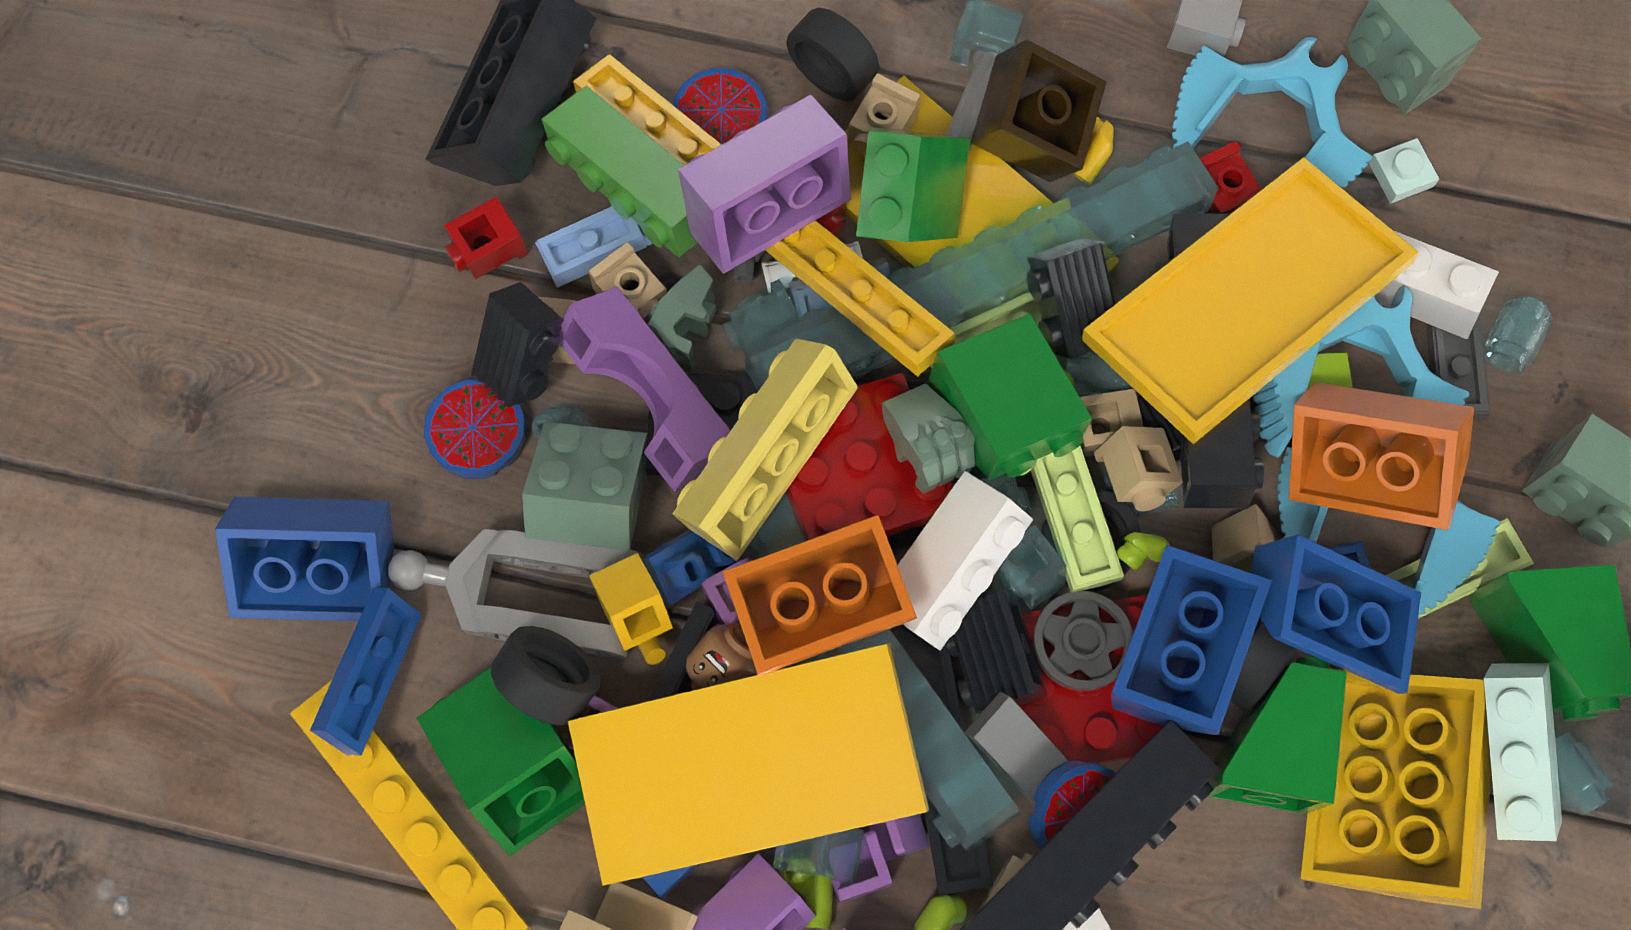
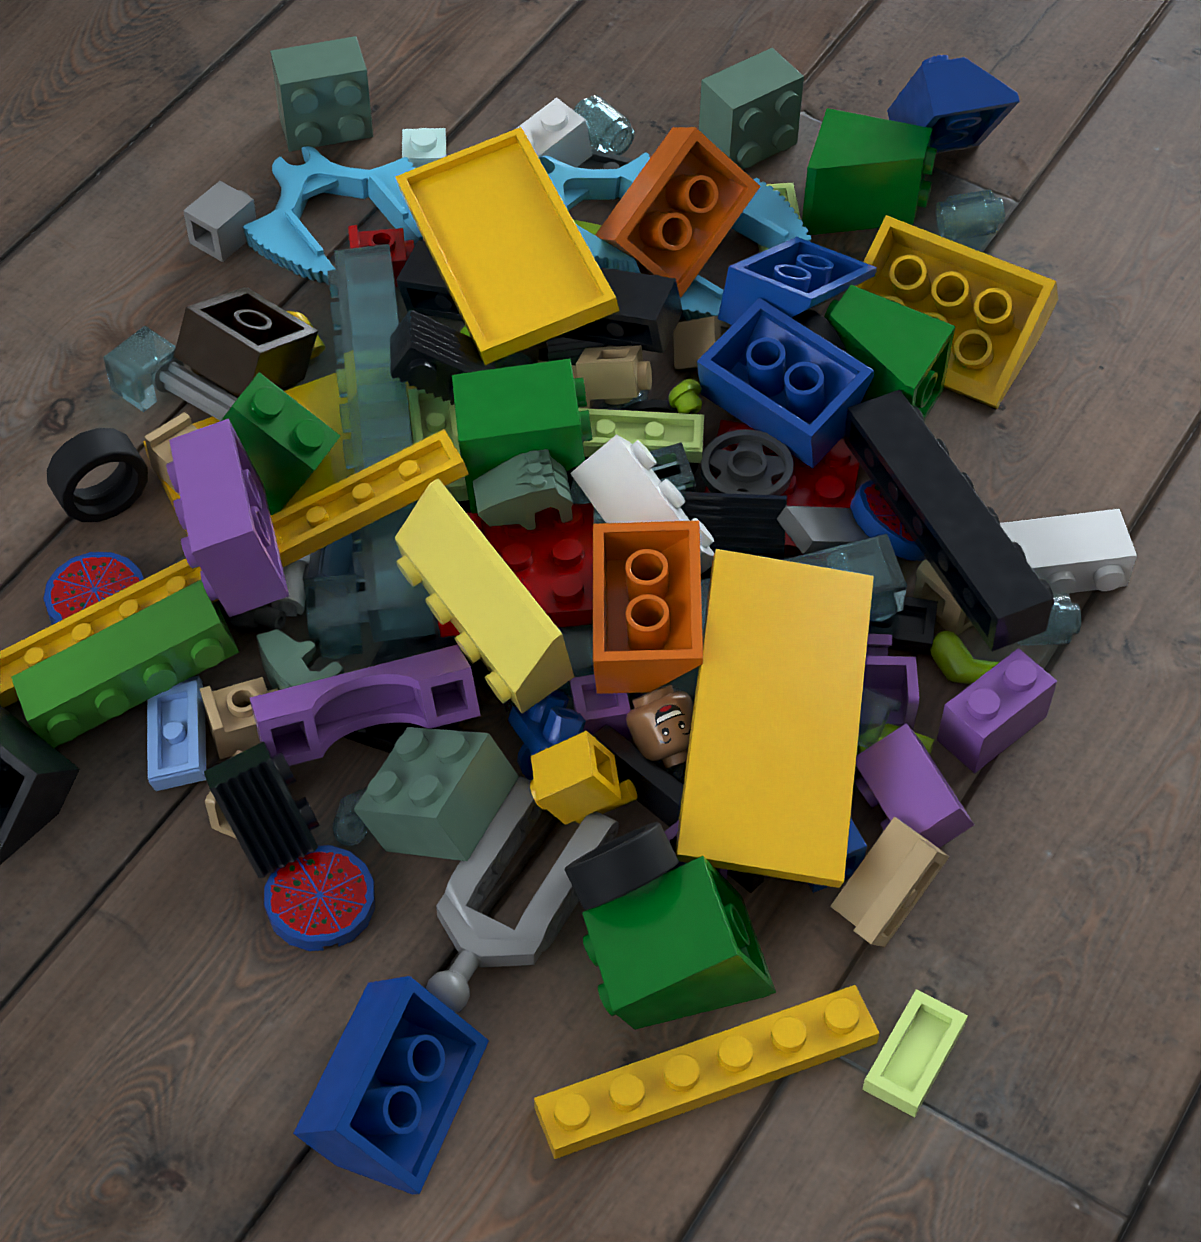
camera: 70 degrees left, 20 degrees down
(366, 672) = (544, 1048): blue plate -> none
(482, 225) = (121, 823): red brick -> none
(1523, 751) = (947, 213): light aqua brick -> none

